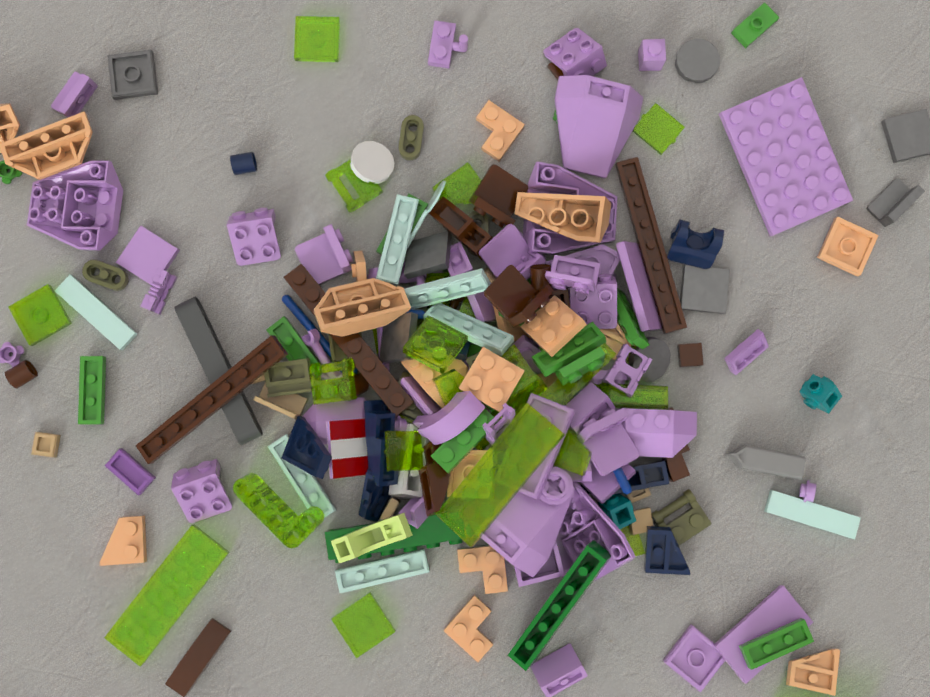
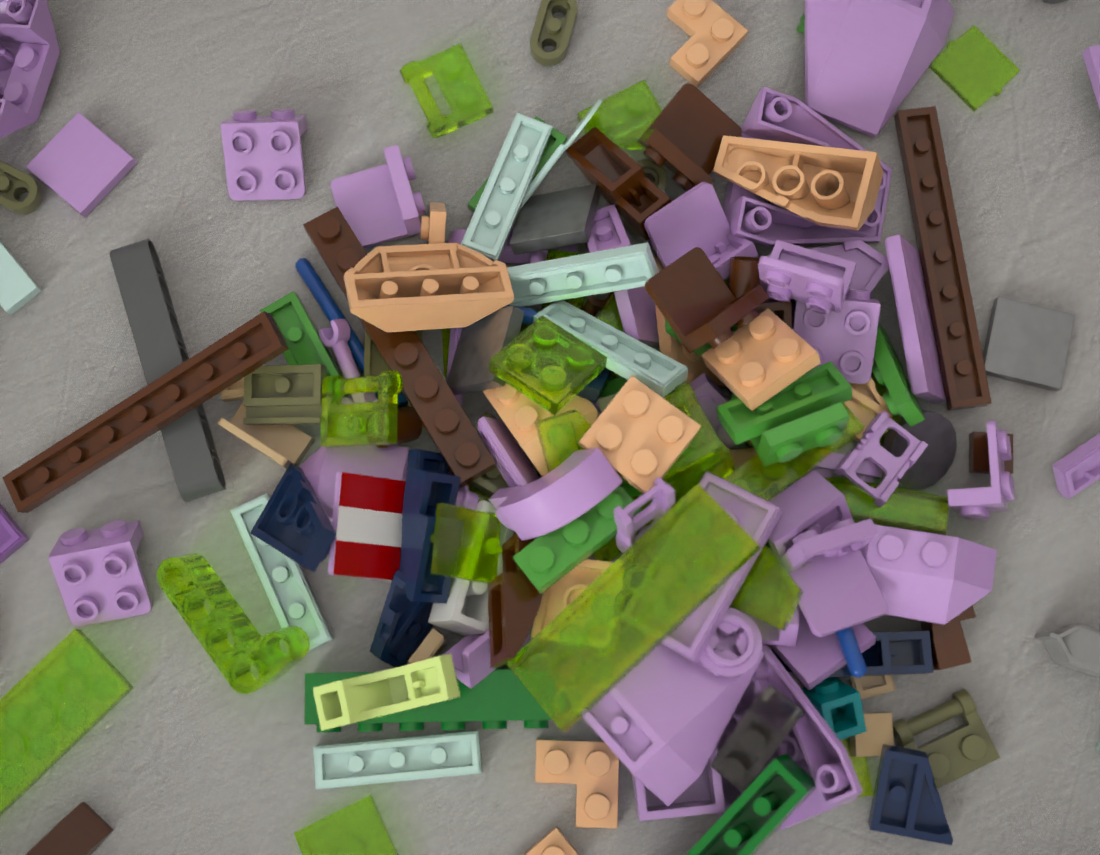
camera: 10 degrees right, 5 degrees down
(159, 289) = (69, 233): lavender piece -> none
(243, 163) = (267, 33): dark blue beam -> none
(372, 162) = (482, 57): white tile -> none
(576, 534) = (756, 738): none -> clear smoke brick
(694, 247) = (1019, 268): dark blue piece -> none
(696, 375) = (978, 502): none -> lavender bracket

